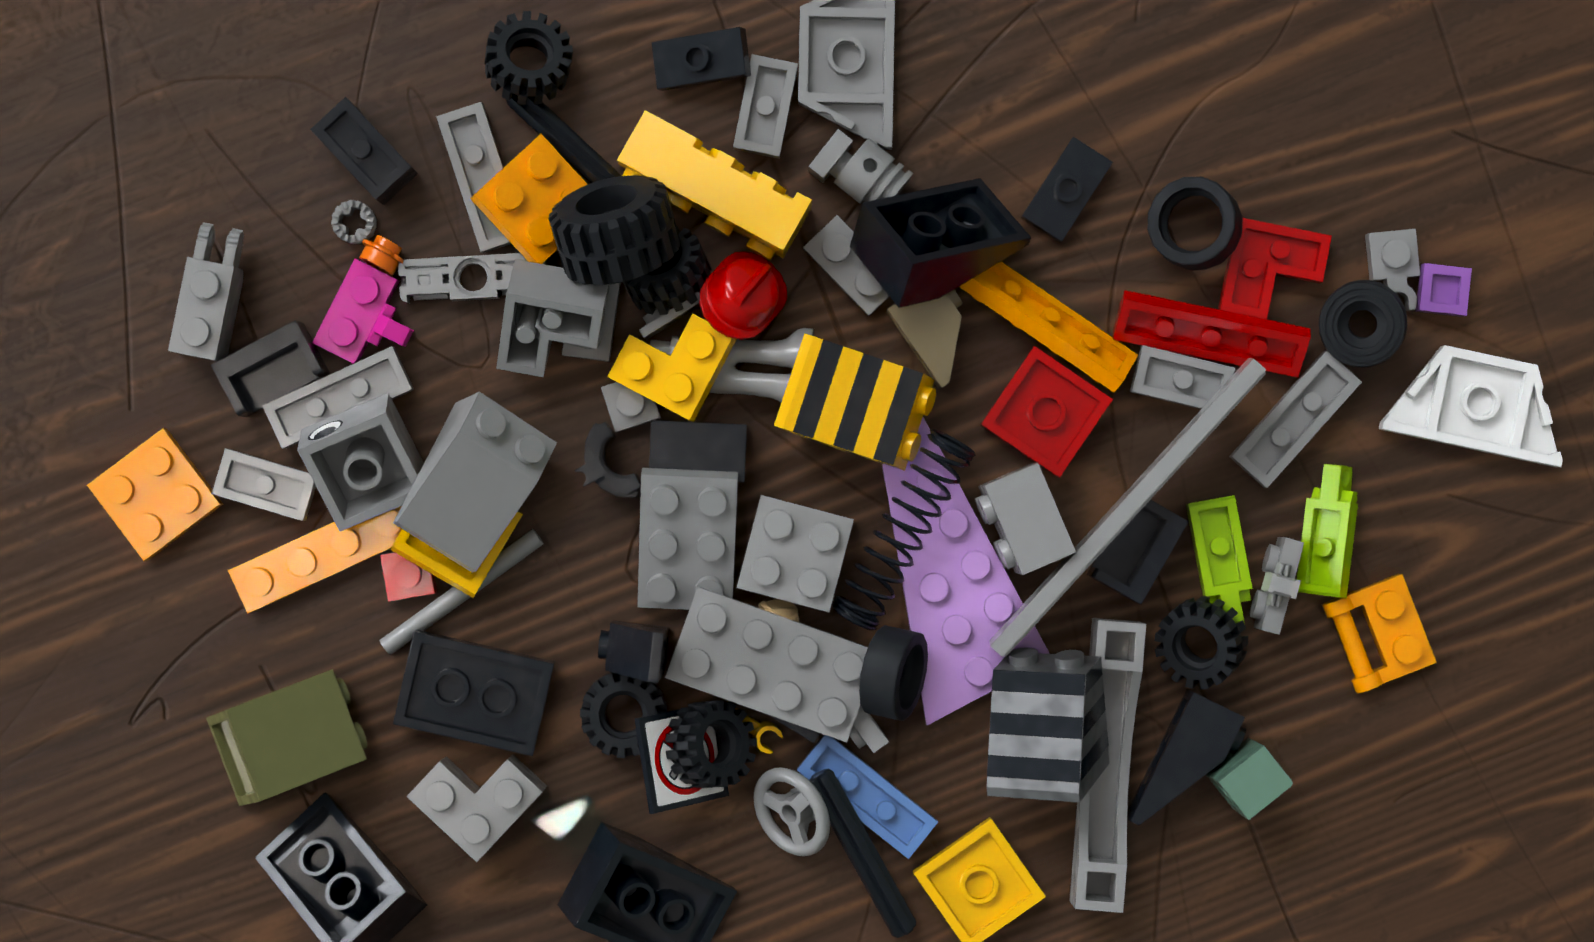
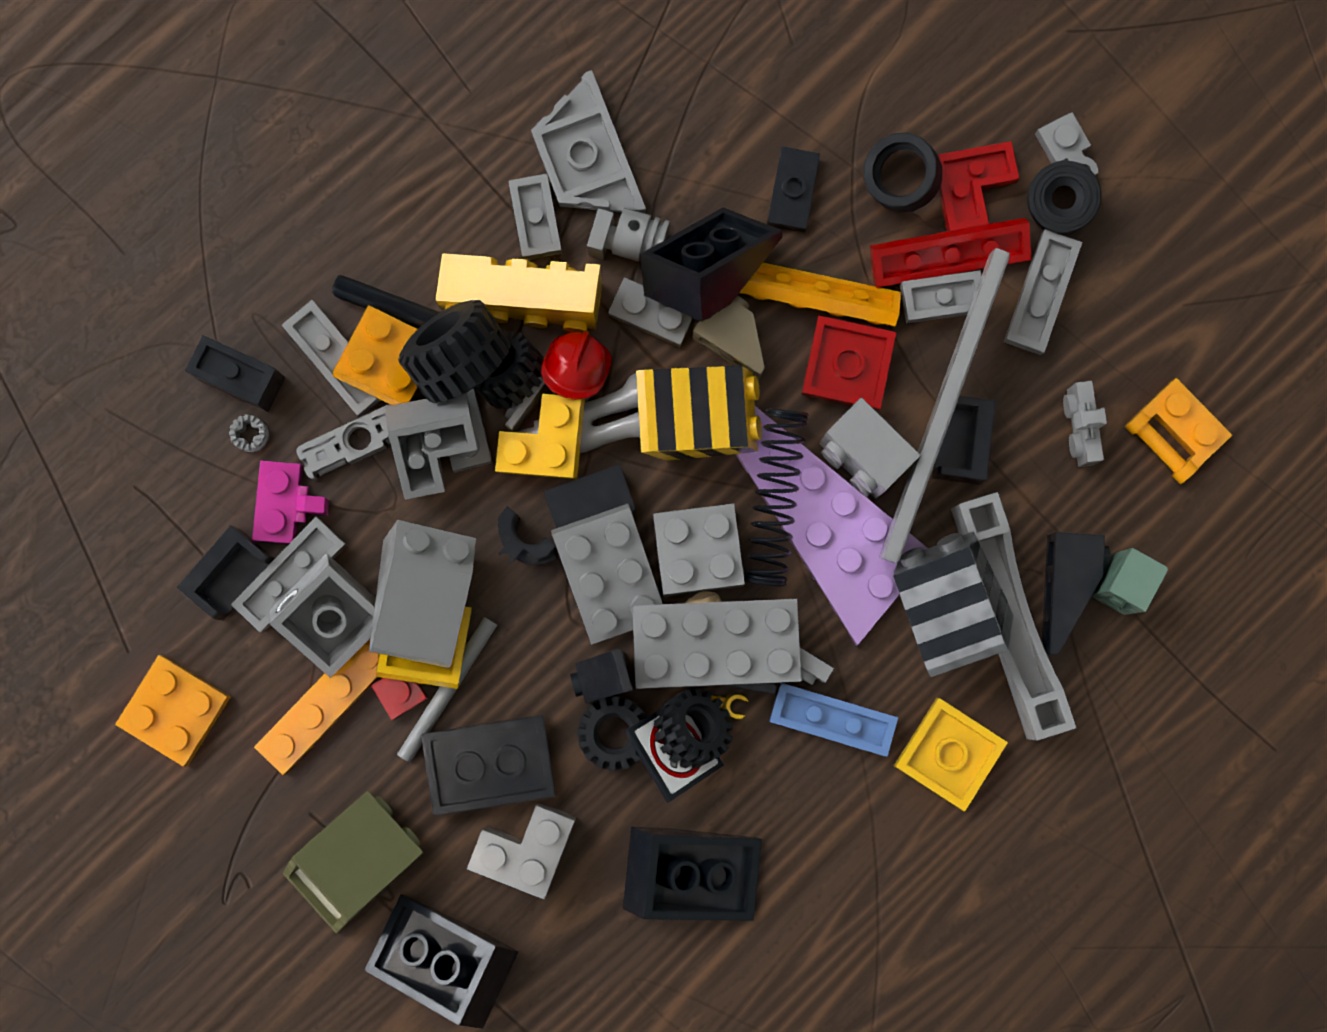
camera: 30 degrees left, 5 degrees down
(208, 298) = (155, 537): light grey hinge -> none
(264, 484) = (257, 666): light grey plate -> none
(381, 254) = (280, 449): orange plate -> none
(530, 34) = (332, 233): black tyre -> none
(562, 818) = (600, 836): clear light blue slope -> none
(628, 407) = (521, 490): light grey plate -> none
(701, 59) = (470, 200): black plate -> none
(795, 808) = (782, 753): light grey piece -> none
(864, 855) = (848, 766): black axle -> none
(893, 673) = (815, 611): black tyre -> none
(1219, 624) = (1036, 513): black tyre -> none
(1220, 552) = (1031, 421): lime hinge -> none
(1328, 534) = (1107, 368): lime hinge -> none
(1443, 289) = (1113, 149): medium lavender plate -> none
(1478, 406) = (1178, 226): white wing -> none

